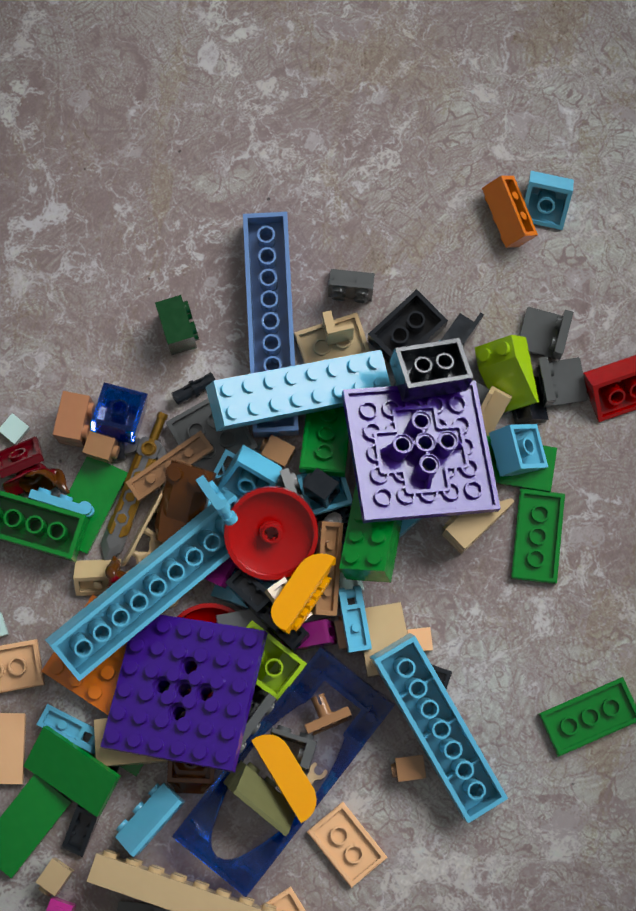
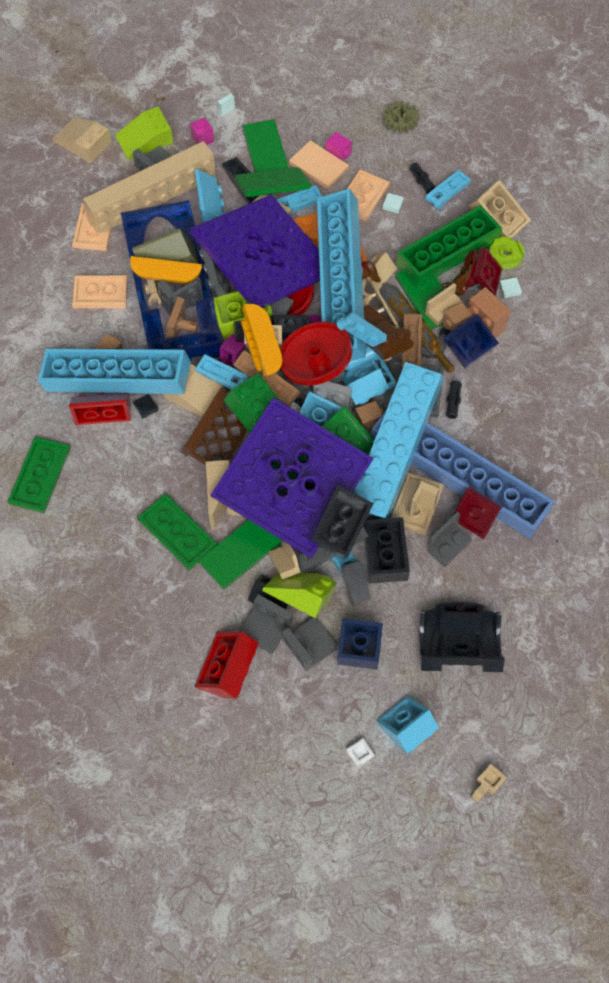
camera: 130 degrees right, 15 degrees down
(54, 877) = (223, 143): tan brick -> none
(64, 501) = (438, 276): medium azure plate -> none
(93, 471) = (442, 302): none -> tan panel
(175, 318) = (505, 411): dark green brick -> none
(305, 278) = (477, 512): none -> dark red tile
(321, 487) = (320, 407): black brick -> none
(419, 596) = (204, 426): none -> reddish brown fence
(423, 636) = (177, 413): light nougat tile -> none
(437, 208) = (460, 636): none -> black piece
(481, 716) = (100, 408): none -> red slope
(509, 211) = (418, 686): orange brick -> none
(513, 286) = (359, 643): none -> dark blue brick
(518, 449) = (242, 556): medium azure slope -> none
(538, 103) = (489, 781): none -> tan plate
(600, 222) = (360, 752): none -> white tile

